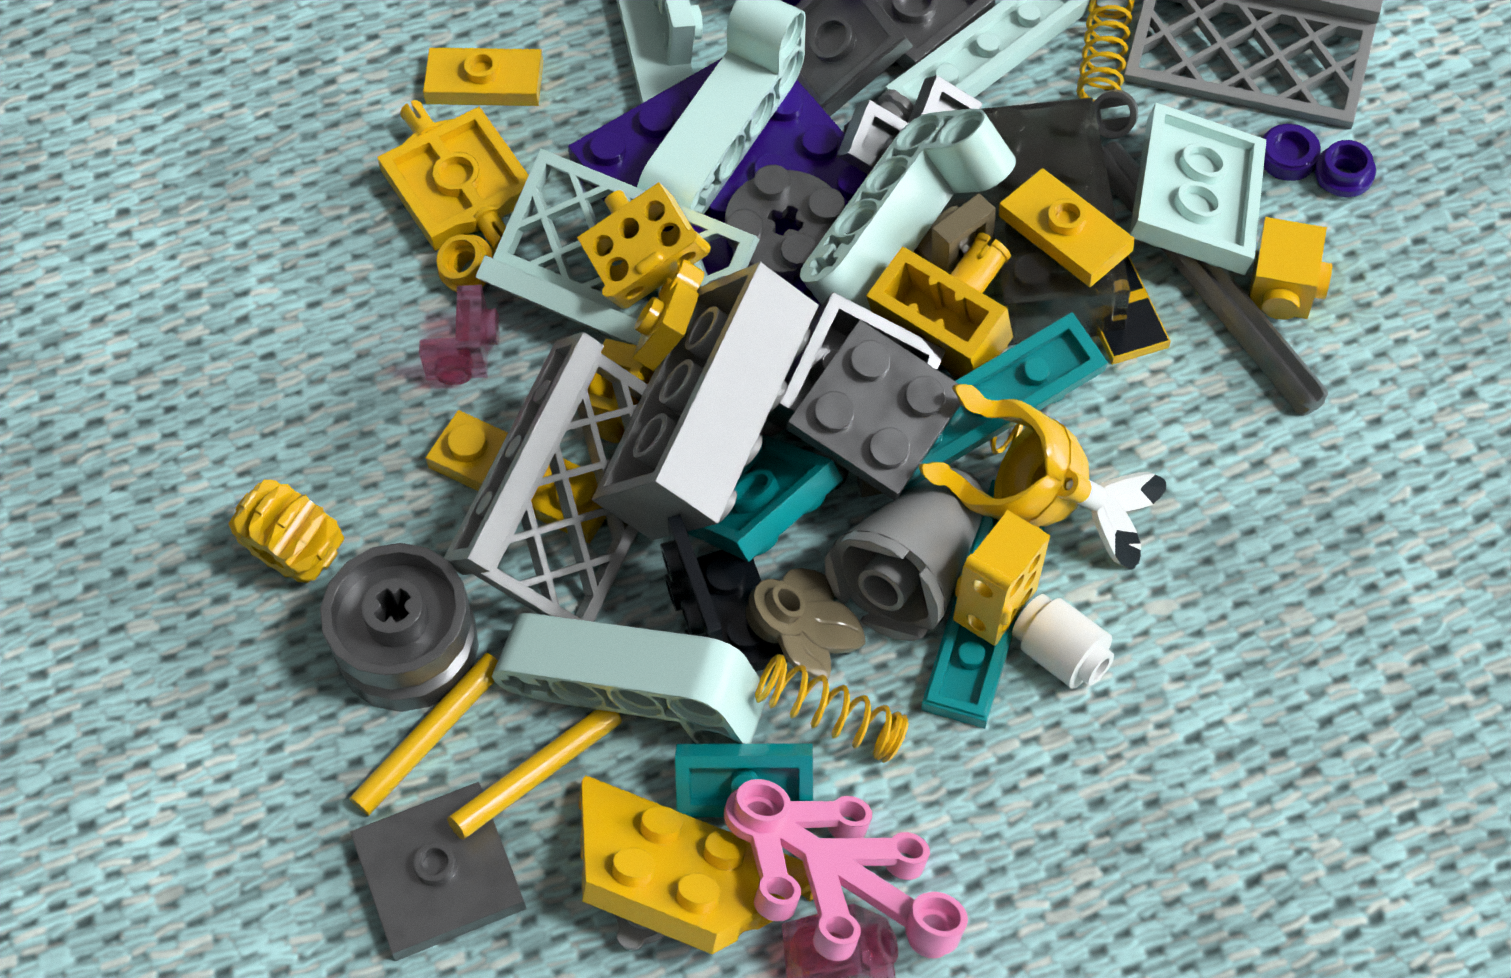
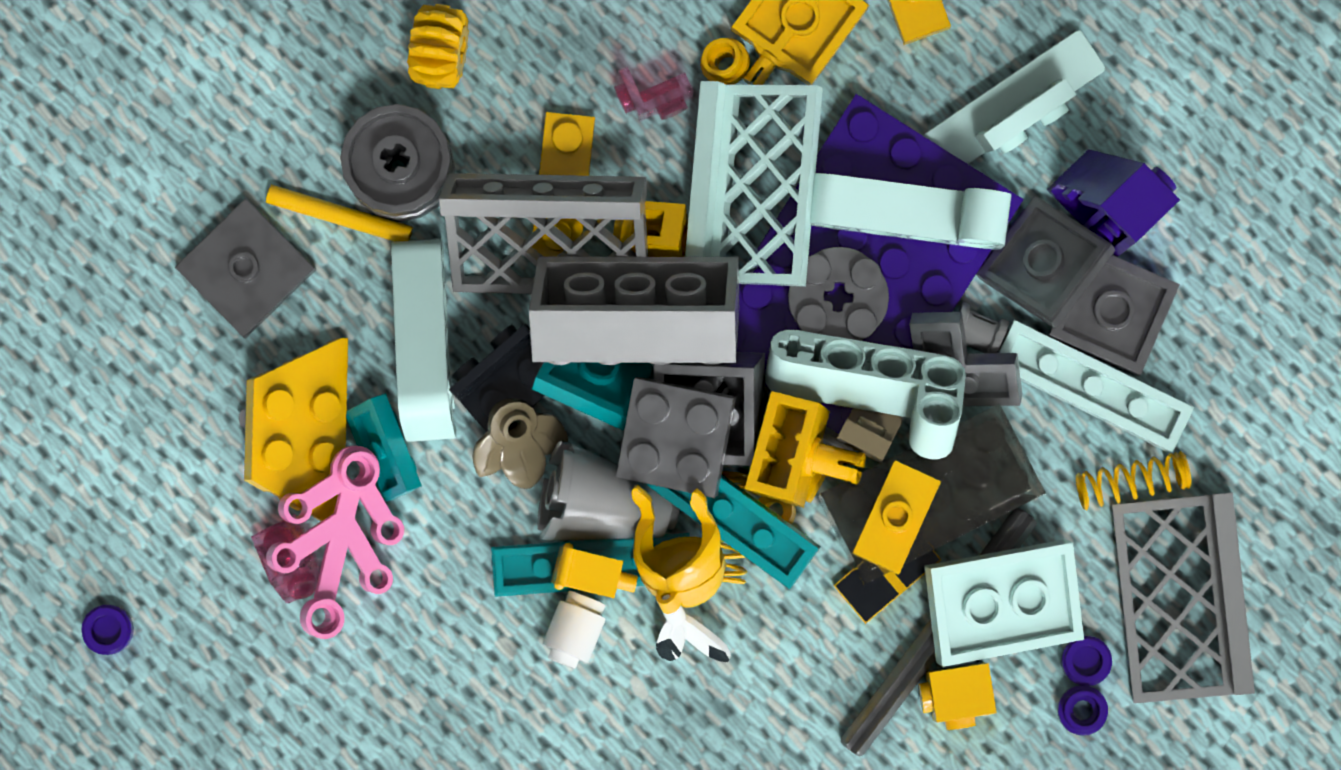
camera: 65 degrees right, 25 degrees up
(532, 772) = (331, 301): yellow bar -> none
(638, 238) = (755, 201): yellow piece -> none
(667, 318) = (697, 250): yellow plate -> none
(890, 736) = (442, 532): yellow piece -> none
(1118, 125) = (1063, 510): flat silver hinge -> none

